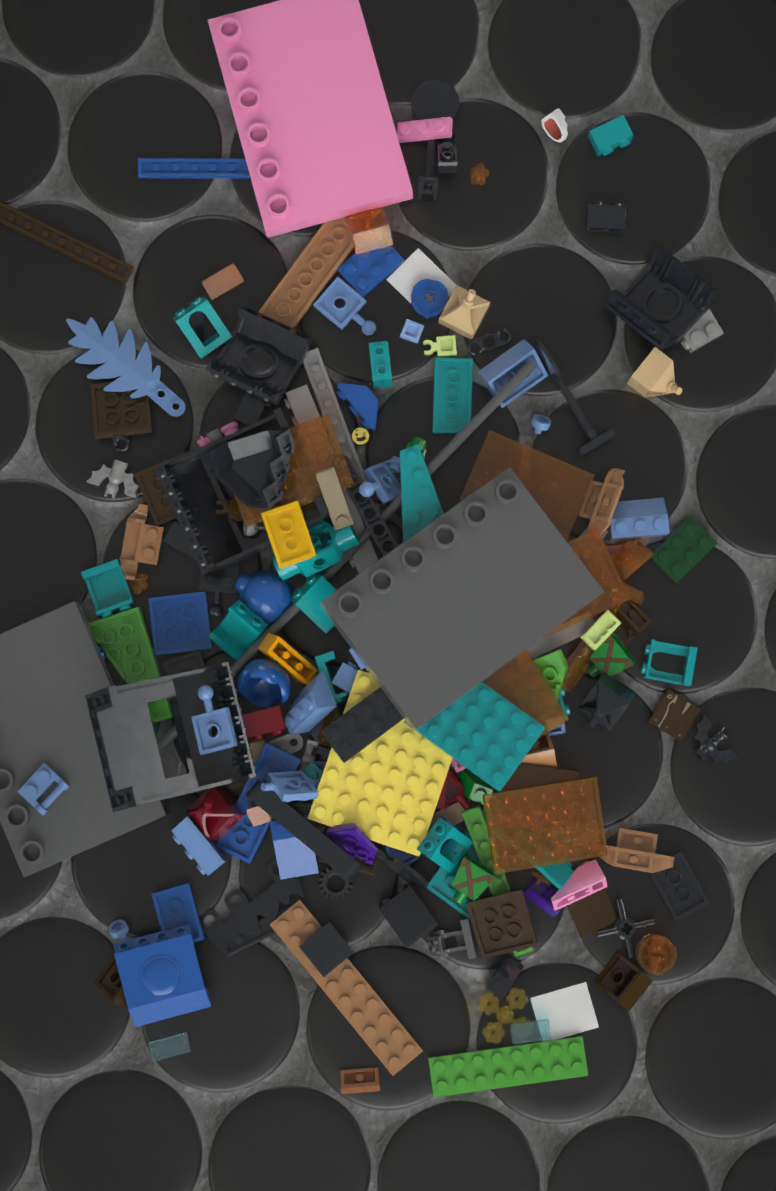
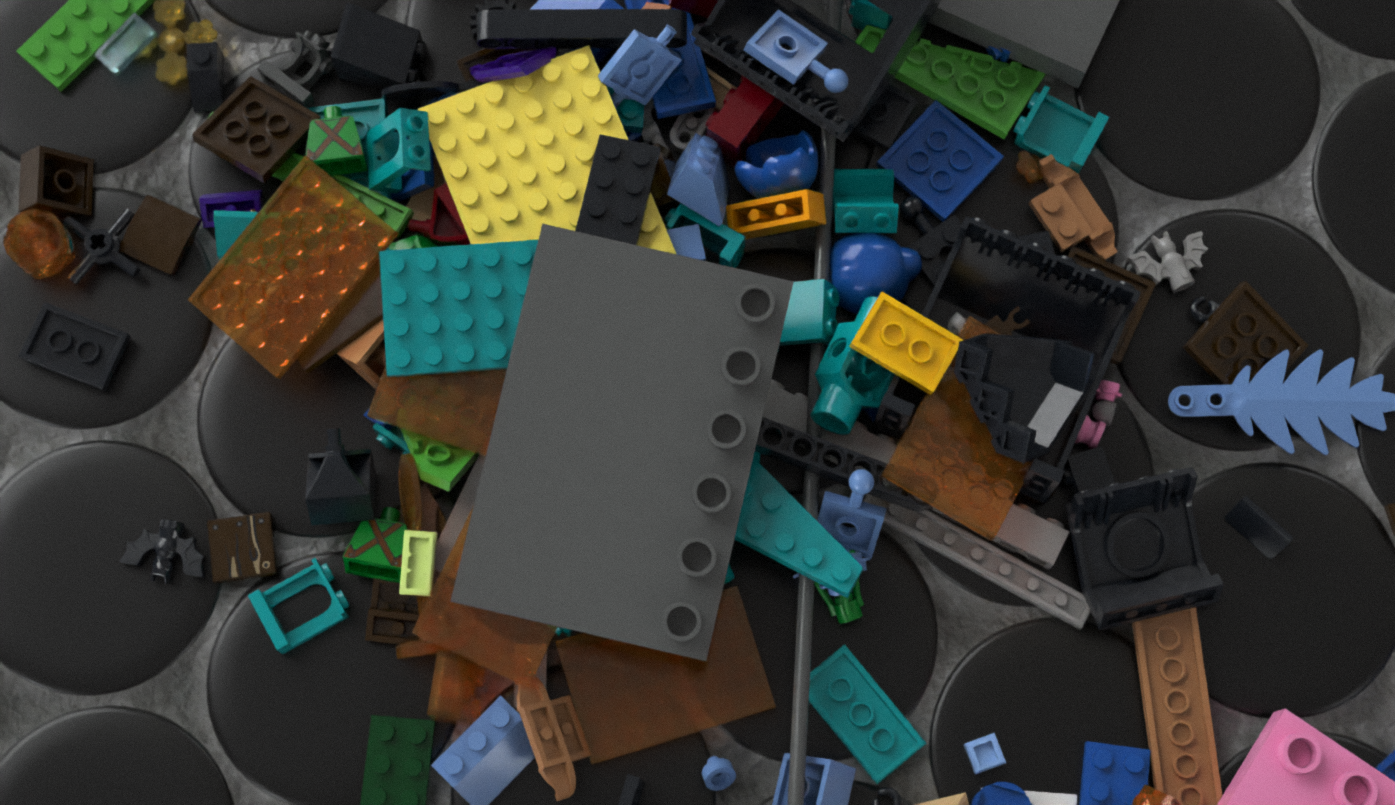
camera: 135 degrees right, 10 degrees down
(182, 320) = (1270, 546): teal panel -> none
(222, 281) = (1273, 610): dark orange slope -> none
(334, 498) = (889, 432): dark tan slope -> none
(344, 315) = (1088, 722): medium blue plate -> none
(360, 436) = (929, 563): light yellow tile -> none
(361, 403) = (963, 603): blue slope -> none
(380, 365) = (985, 666): teal panel -> none
(443, 346) = (928, 767): yellowish green plate -> none
(567, 1009) = (101, 103): white sticker -> none
(582, 883) = (197, 249): bright pink slope -> none
(637, 852) = (156, 341): medium nougat plate -> none

